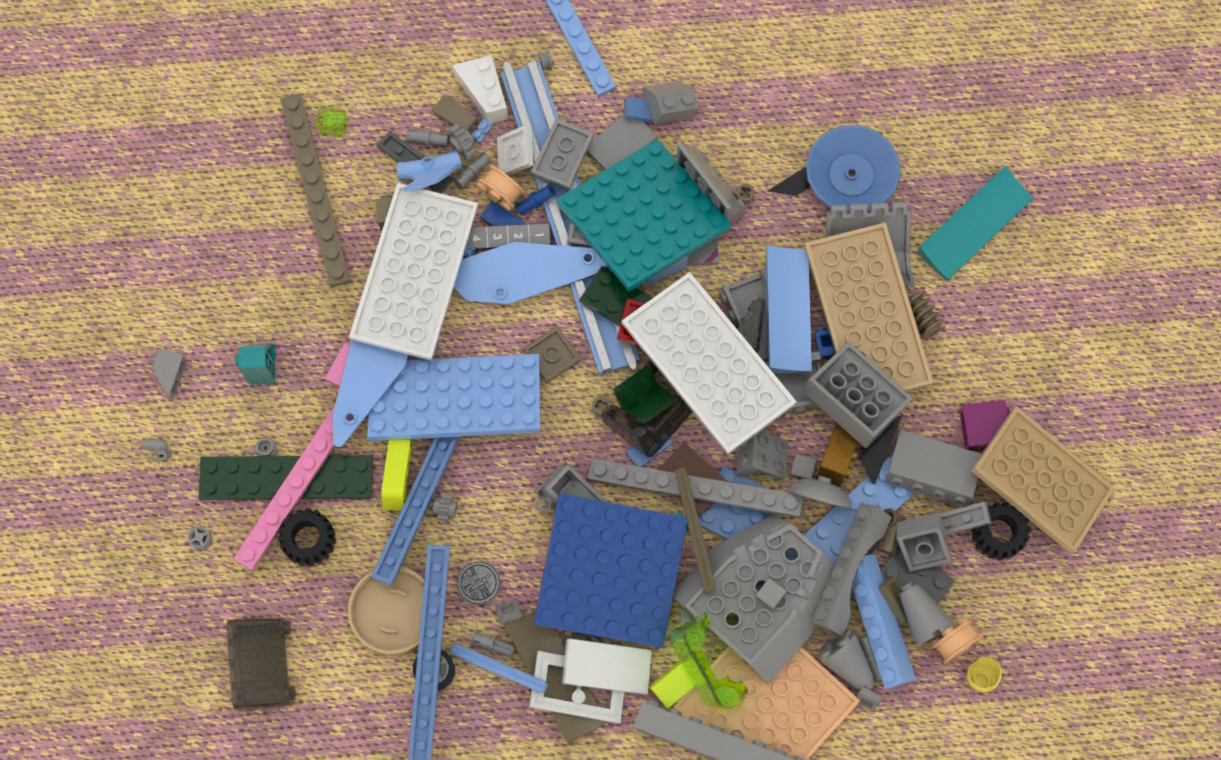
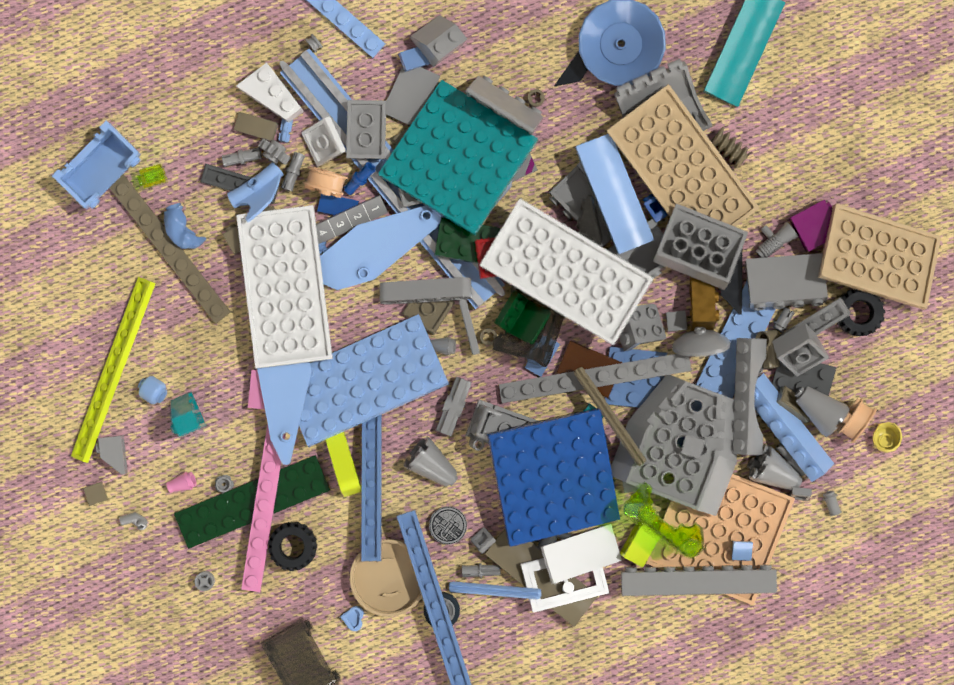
camera: 25 degrees left, 15 degrees up
(131, 406) = (95, 493): none -> dark tan tile
(206, 290) = (113, 369): none -> neon yellow plate
(225, 429) = (183, 482): none -> bright pink cone
(236, 324) = (152, 390): none -> light blue head
(283, 87) = (98, 166): none -> light blue windscreen
(332, 179) = (176, 228): none -> medium blue animal
(337, 640) = (353, 617): none -> light blue tile
(445, 507) = (394, 475): light grey gear -> none
(488, 510) = (431, 463): none -> light grey cone
(536, 461) = (453, 406): none -> light grey piece
(552, 397) = (444, 345): none -> light grey cone
(555, 332) = (425, 290): none -> light grey beam
(585, 387) = (469, 327): none -> light grey tile
(781, 733) = (742, 550): none -> light blue slope
(898, 723) = (832, 503): none -> light grey pin
(916, 509) = (783, 320): none -> light grey pin
(937, 426) = (775, 241): none -> light grey piece

